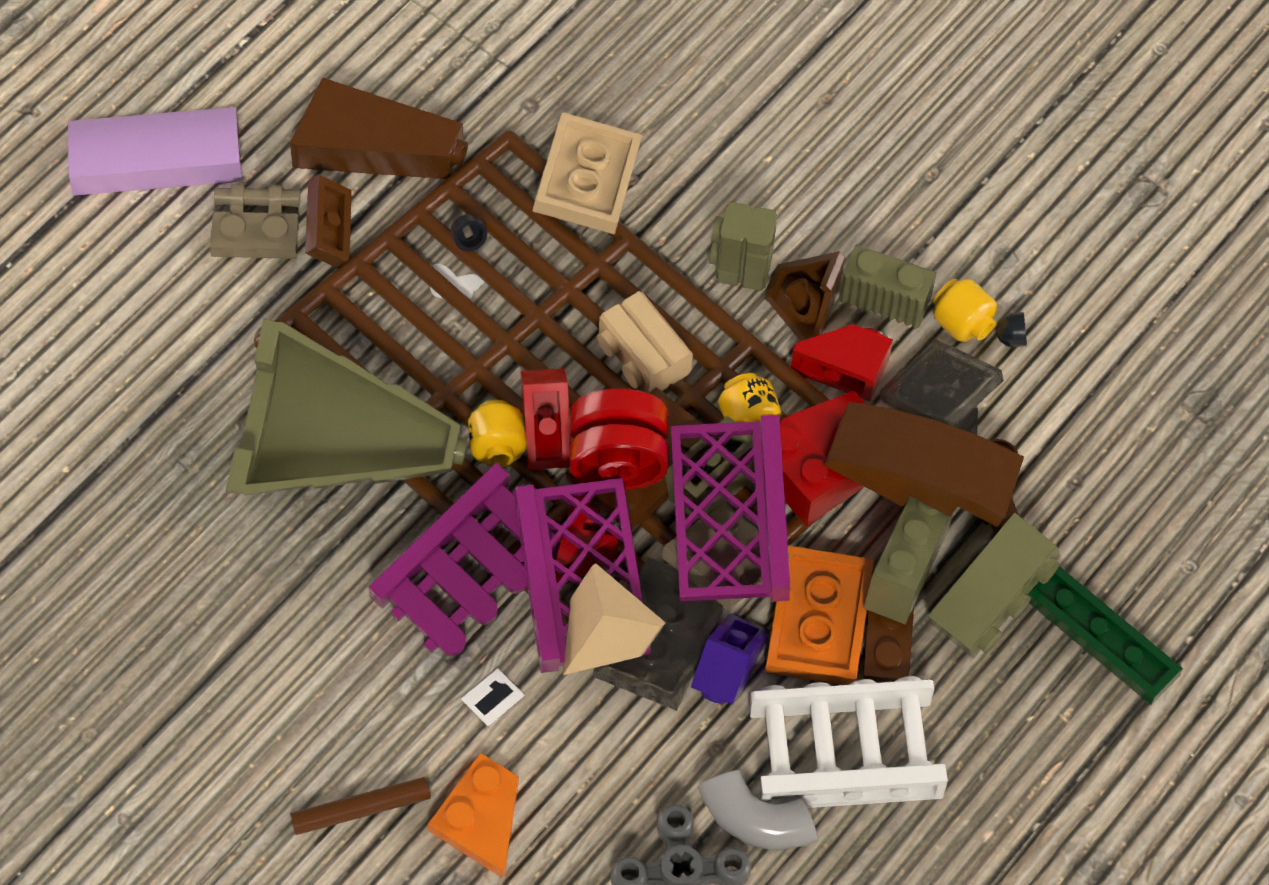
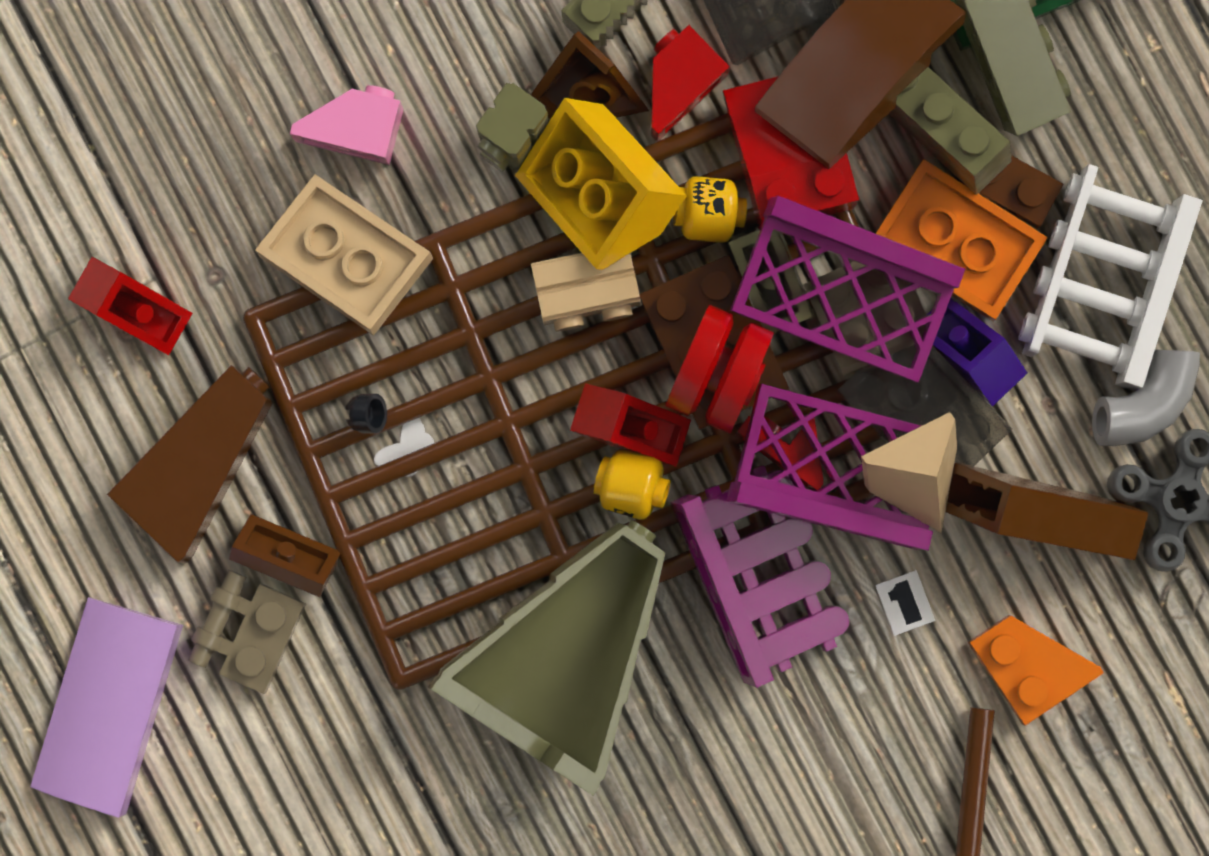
camera: 60 degrees left, 25 degrees up
(477, 51) = (130, 305): none -> red slope
(618, 755) = (1044, 512): none -> reddish brown slope
(695, 148) = (354, 124): none -> bright pink slope
(733, 318) = (599, 183): none -> yellow slope

